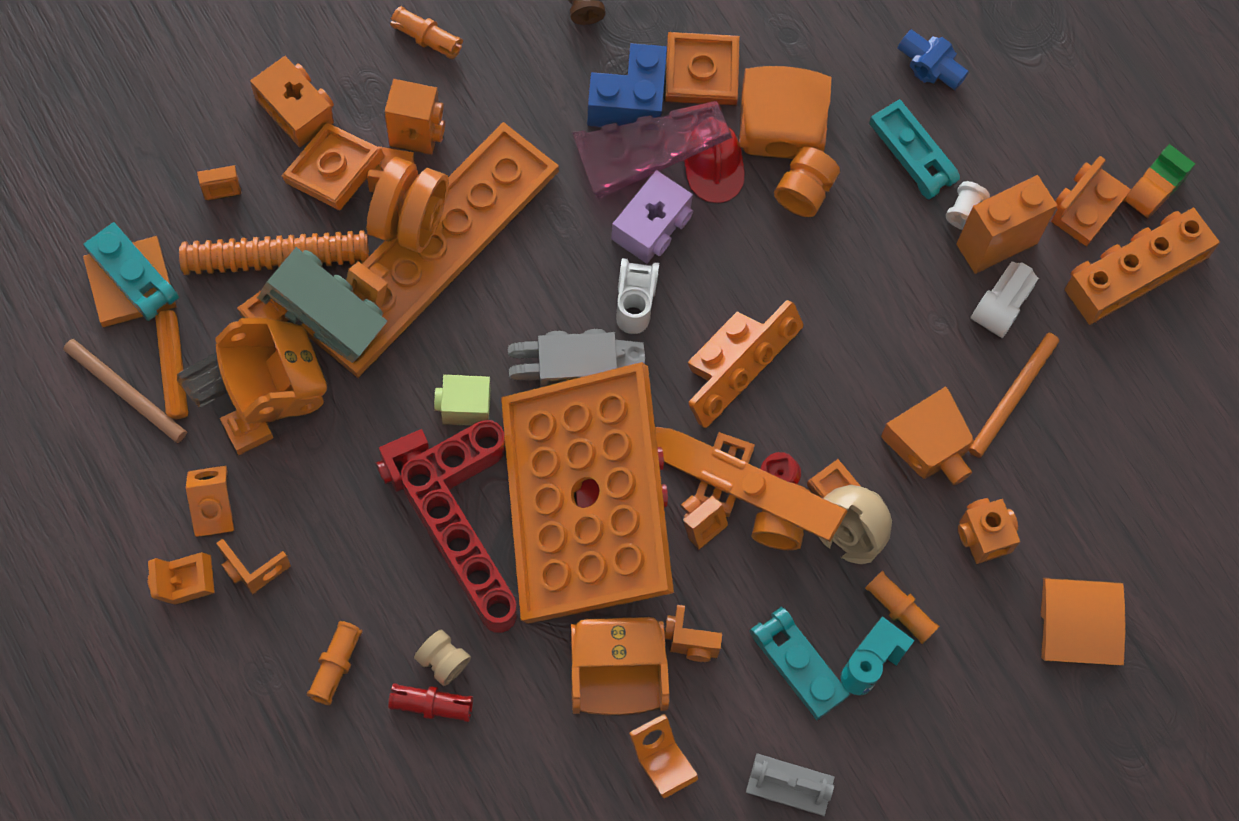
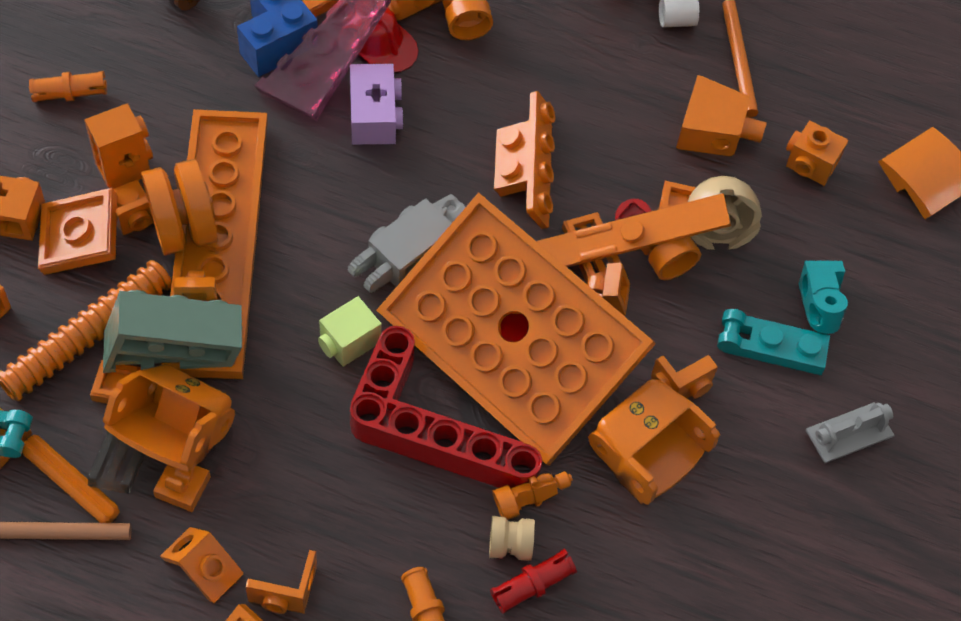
camera: 40 degrees left, 10 degrees down
(397, 454) = (335, 410): red bracket -> none
(468, 628) = (536, 491): none -> orange piece
(636, 290) = (411, 166): white piece -> none
(663, 758) = (748, 485): orange bracket -> none
(902, 607) = (805, 248): orange pin -> none

